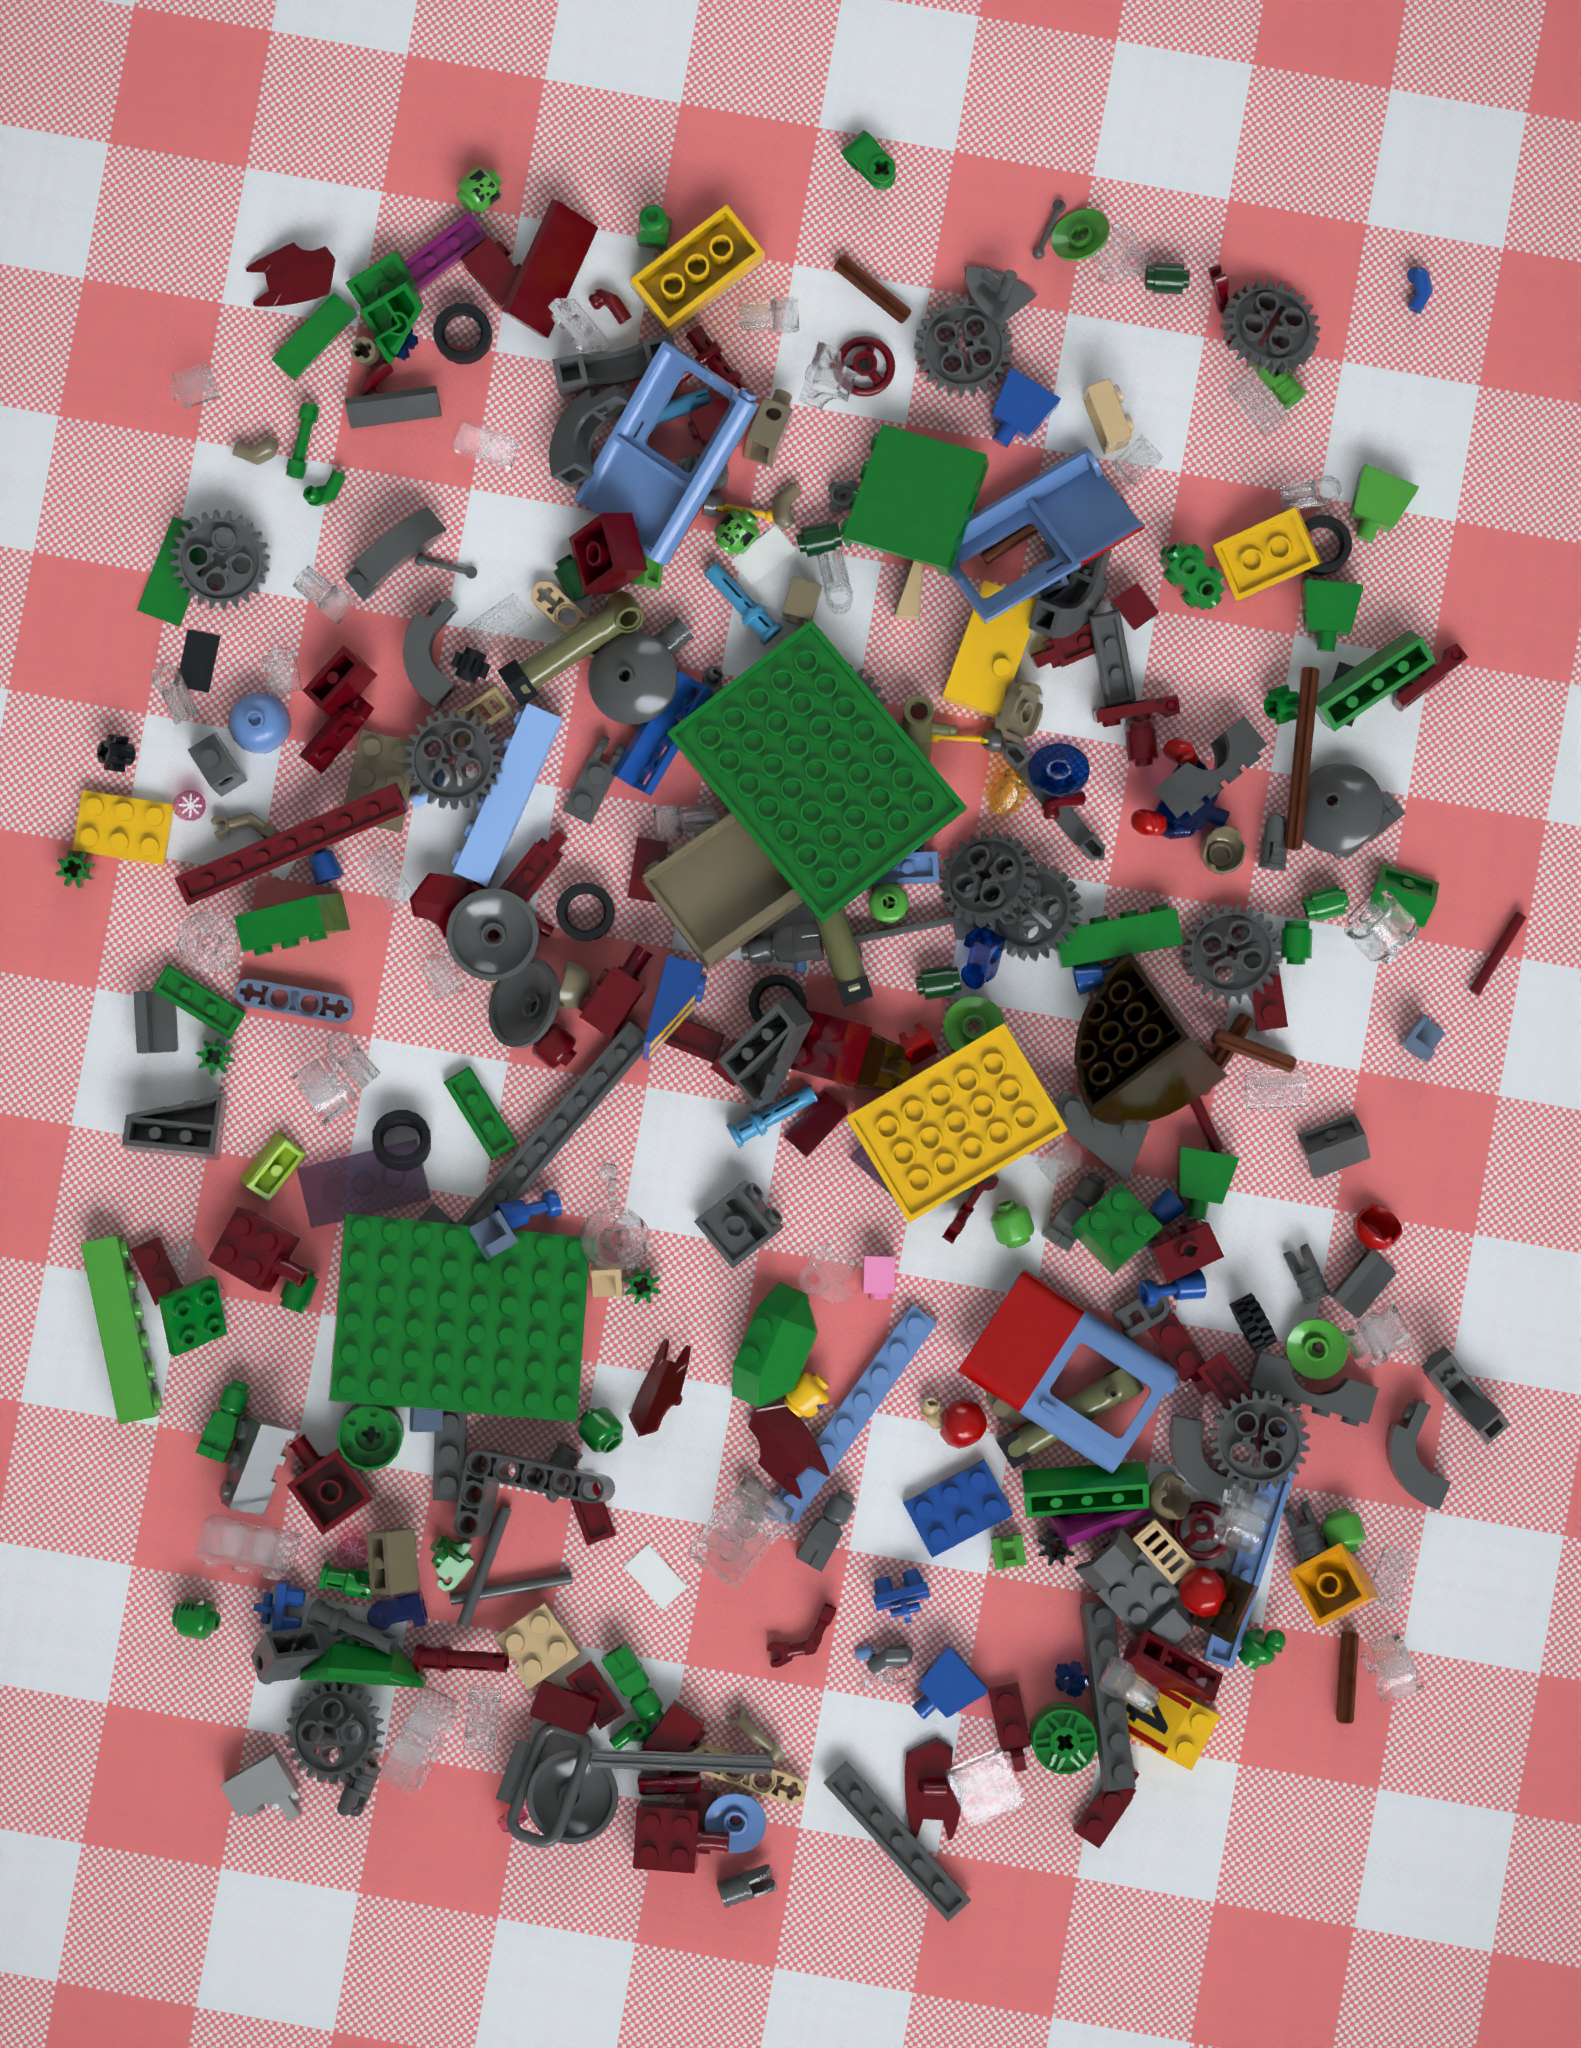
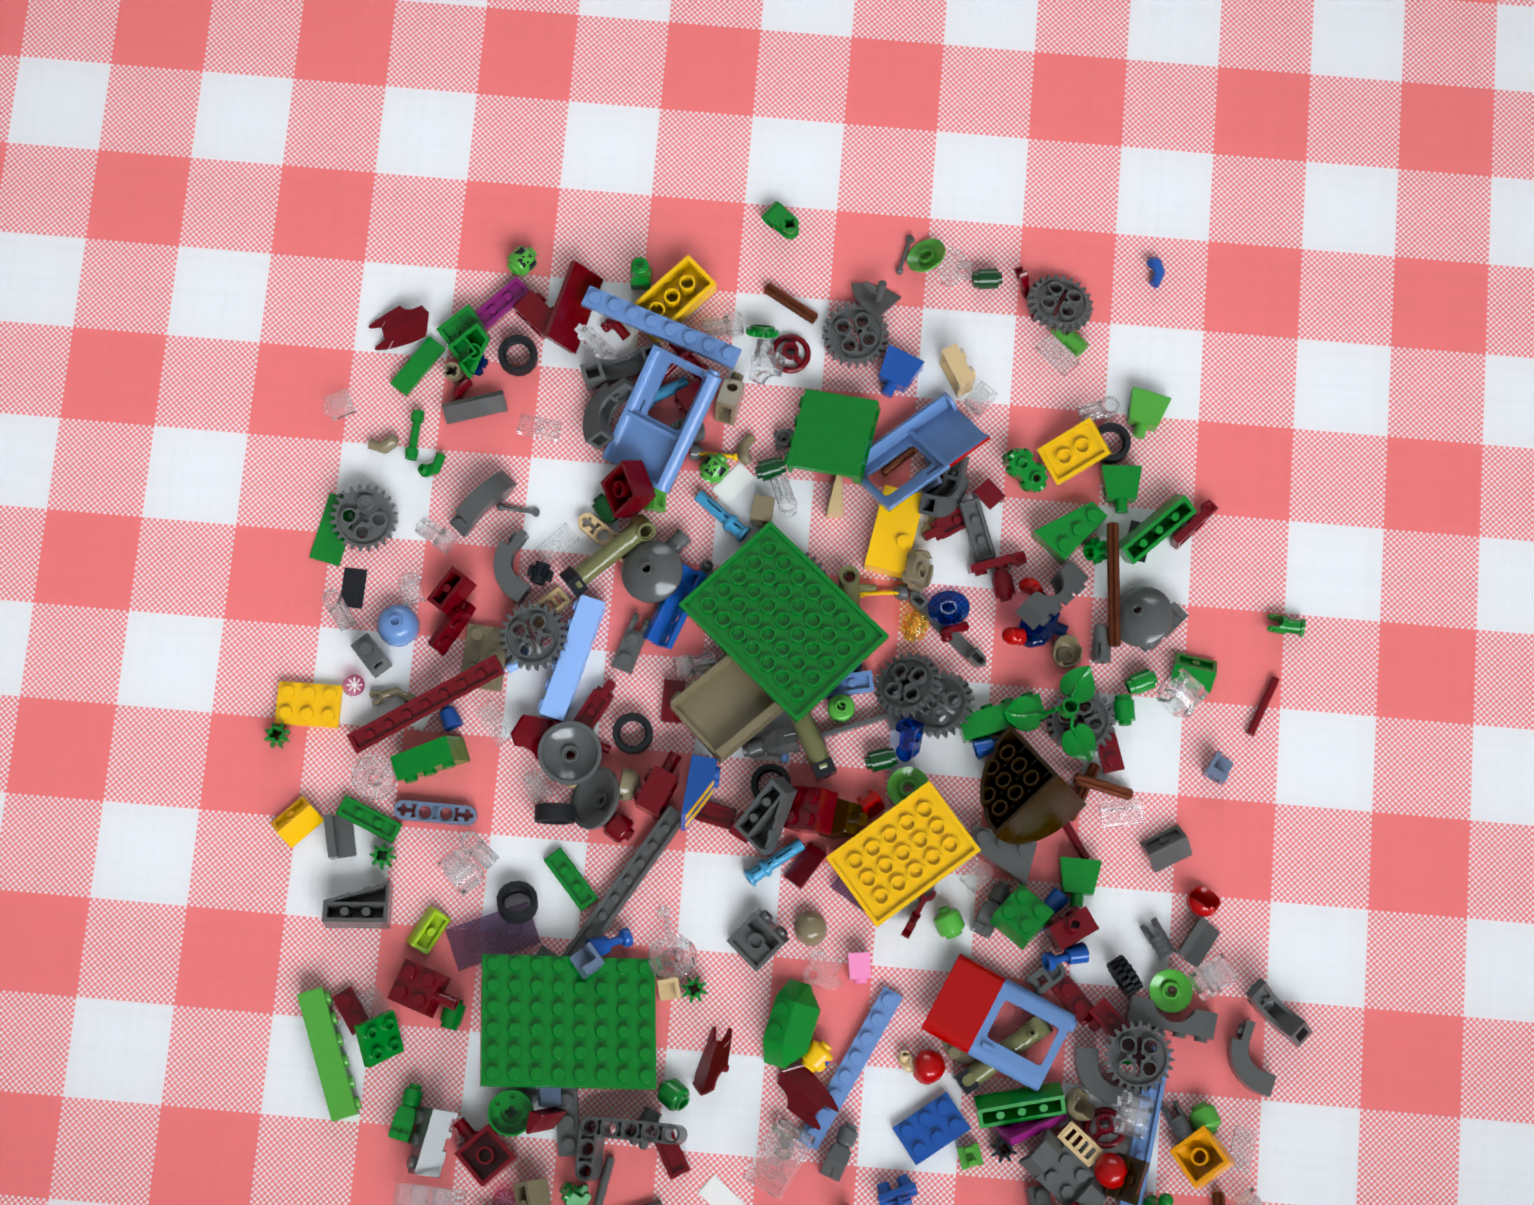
camera: 10 degrees left, 10 degrees down
(95, 995) = (297, 821): none -> yellow panel
(116, 753) = (300, 653): black gear -> none
(416, 1449) = (544, 1119): none -> dark red slope
(464, 1019) = (554, 813): none -> black tyre
(677, 313) = (661, 327): none -> medium blue plate
(815, 1213) = (810, 928): none -> dark tan hair
(826, 330) = (762, 331): none -> green gear
(1227, 983) = (1080, 688): none -> green plant
(1247, 673) = (1070, 531): none -> green wedge
(1548, 839) = (1287, 625): none -> green piece

